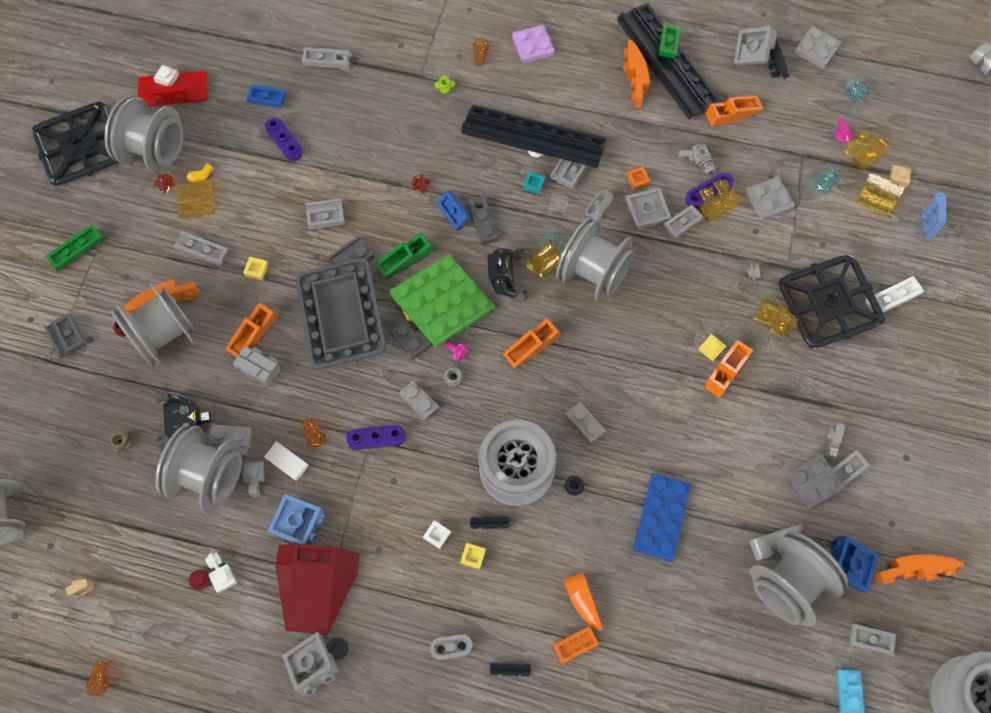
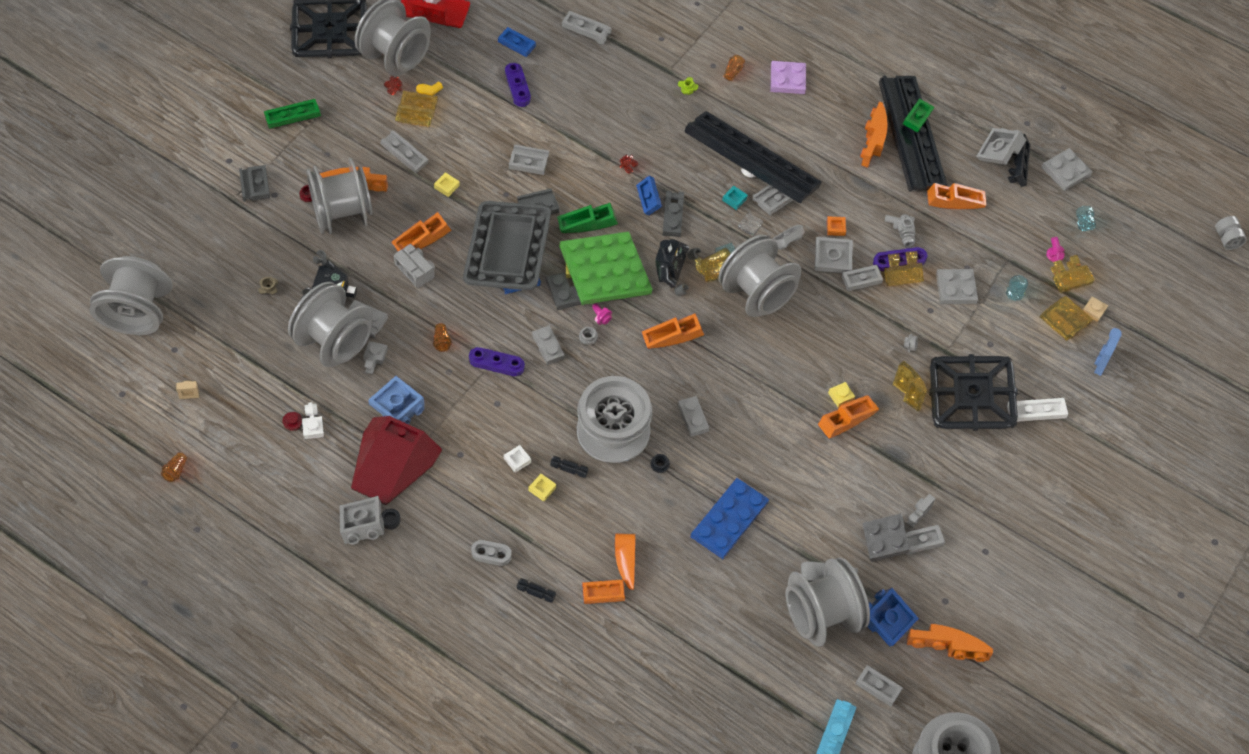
camera: 15 degrees right, 10 degrees down
(286, 461) = (408, 351): white slope -> none

